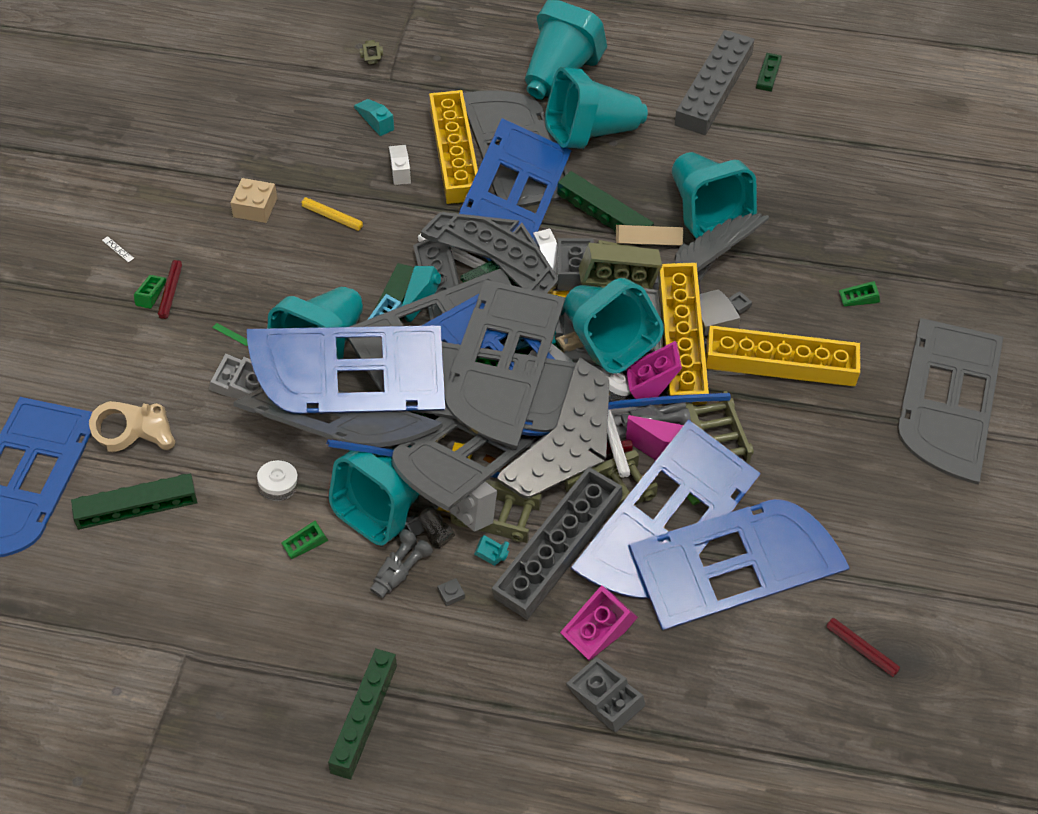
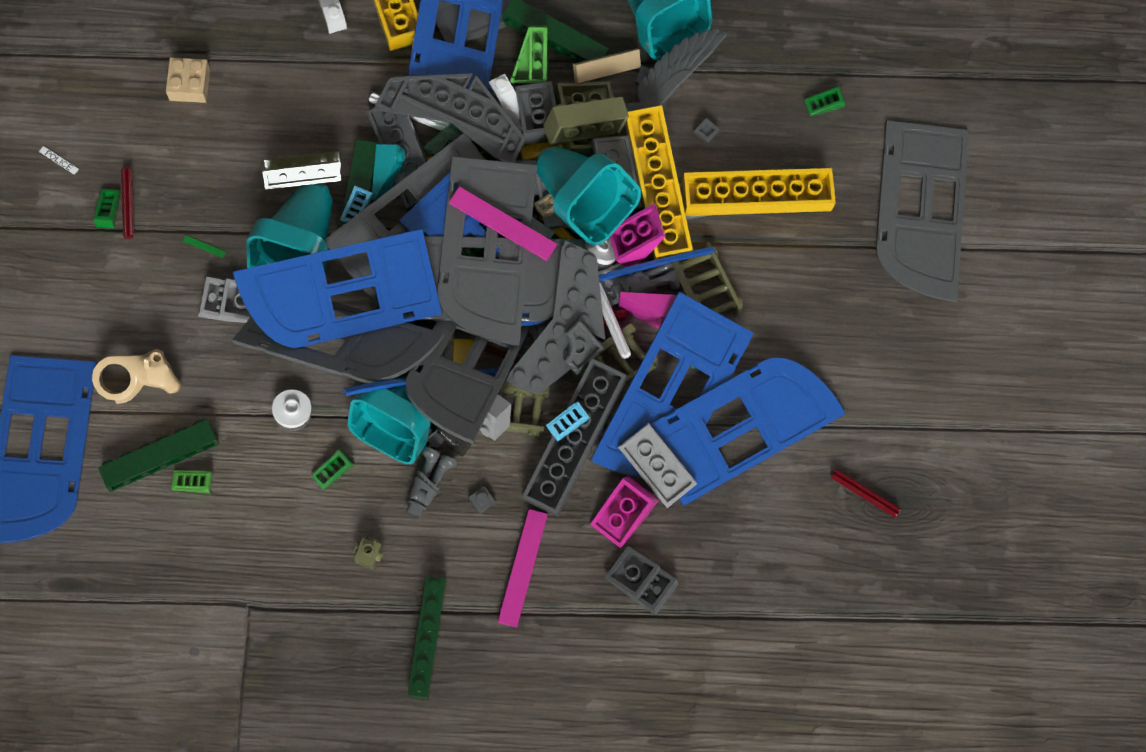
camera: 15 degrees left, 20 degrees up
(166, 537) = (199, 474): none -> bright green slope
(321, 620) = (368, 559): none -> olive brick
(332, 214) = (273, 82): yellow axle -> none
(339, 277) = (302, 170): none -> fence
(479, 664) = (522, 568): none -> dark pink tile
(491, 550) = (512, 452): teal bracket -> none
(522, 340) = (503, 224): none -> dark pink tile
(556, 525) = (584, 417): none -> medium azure slope
(579, 456) = (582, 347): none -> dark grey tile
(580, 215) = (533, 57): none -> bright green wedge
(641, 582) = (657, 465): none -> light grey tile
(717, 311) = (686, 146): light grey slope -> none

